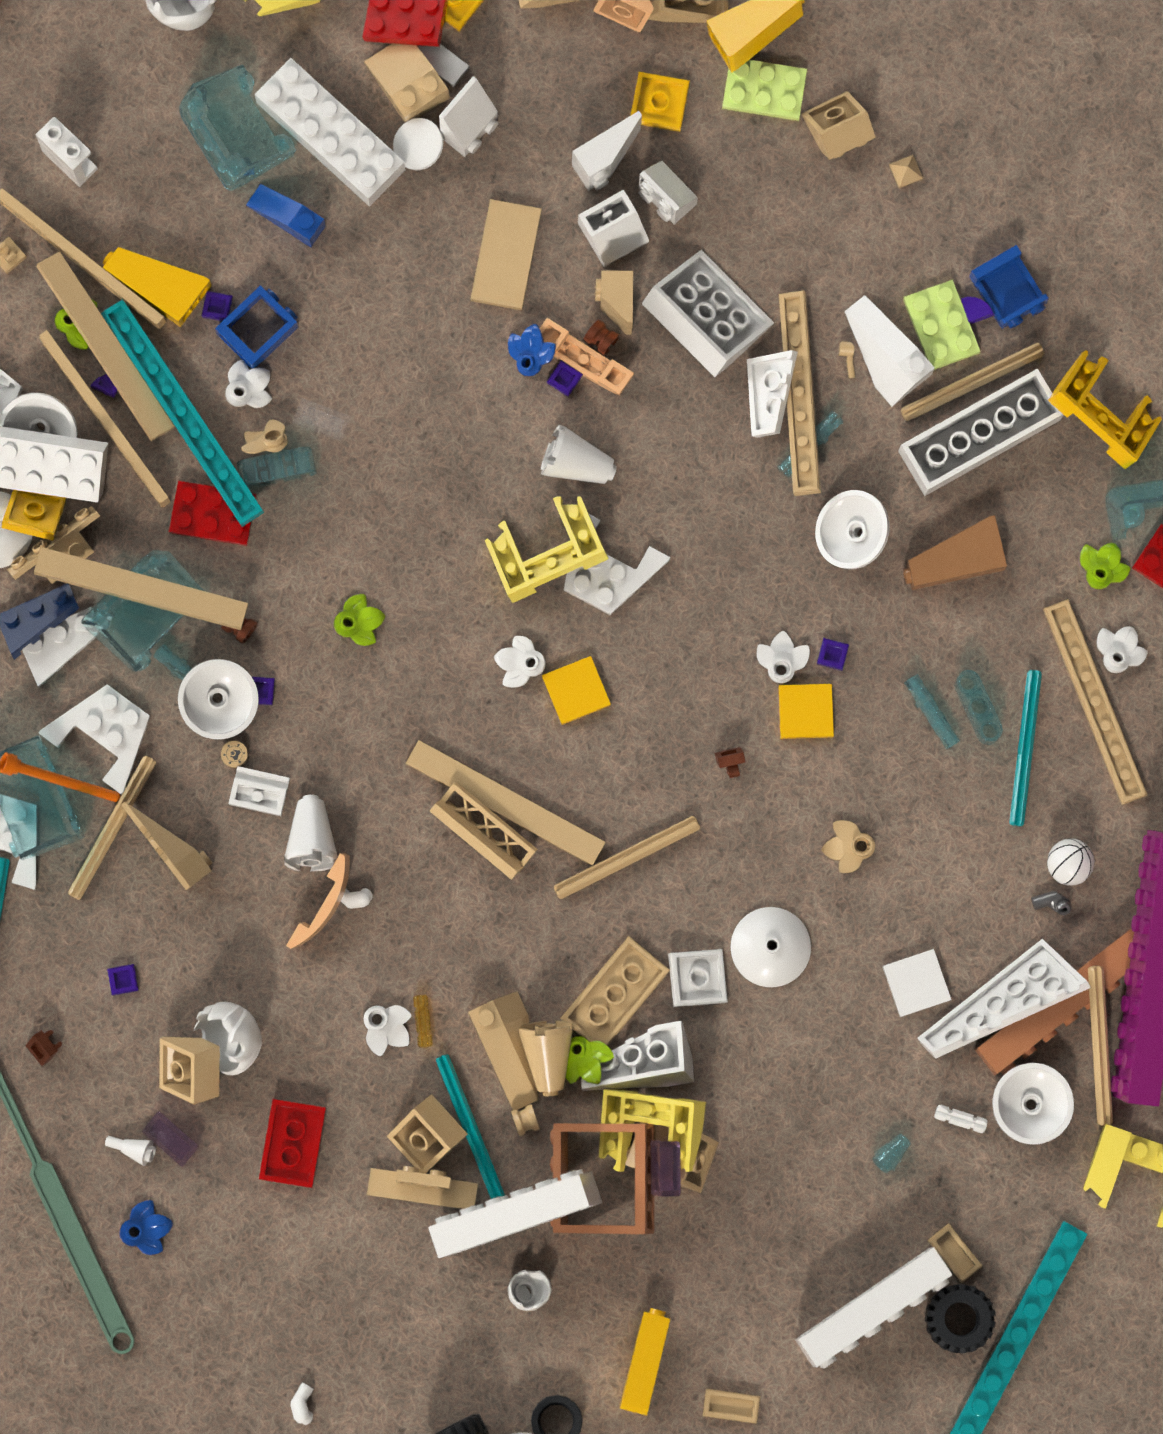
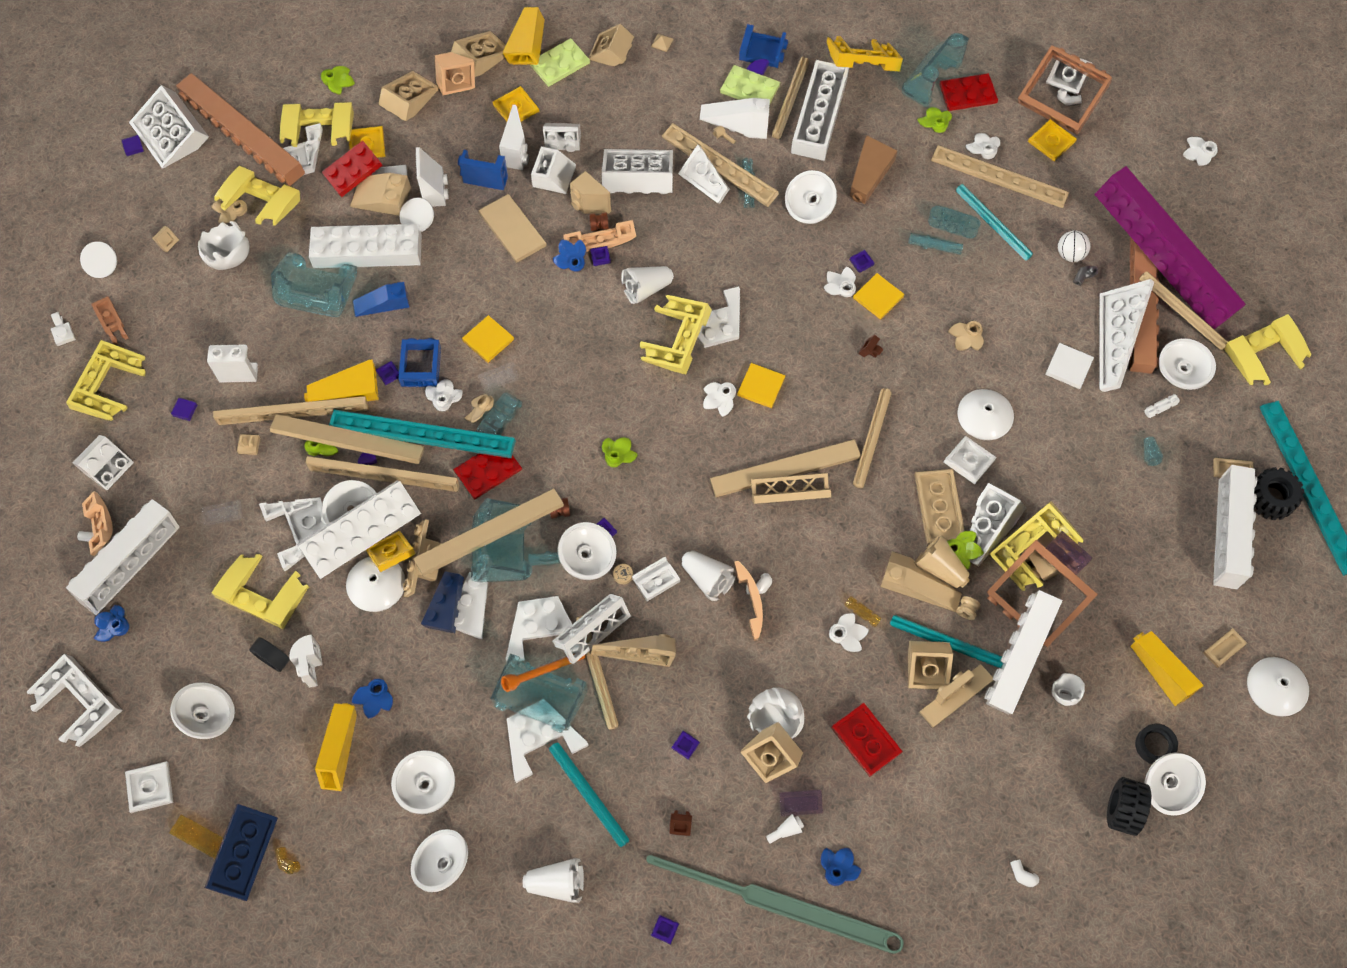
camera: 40 degrees left, 15 degrees down
(147, 776) = (589, 623): none -> white fence
(353, 364) = (488, 339): none -> yellow tile
(545, 179) = (483, 173): none -> blue panel

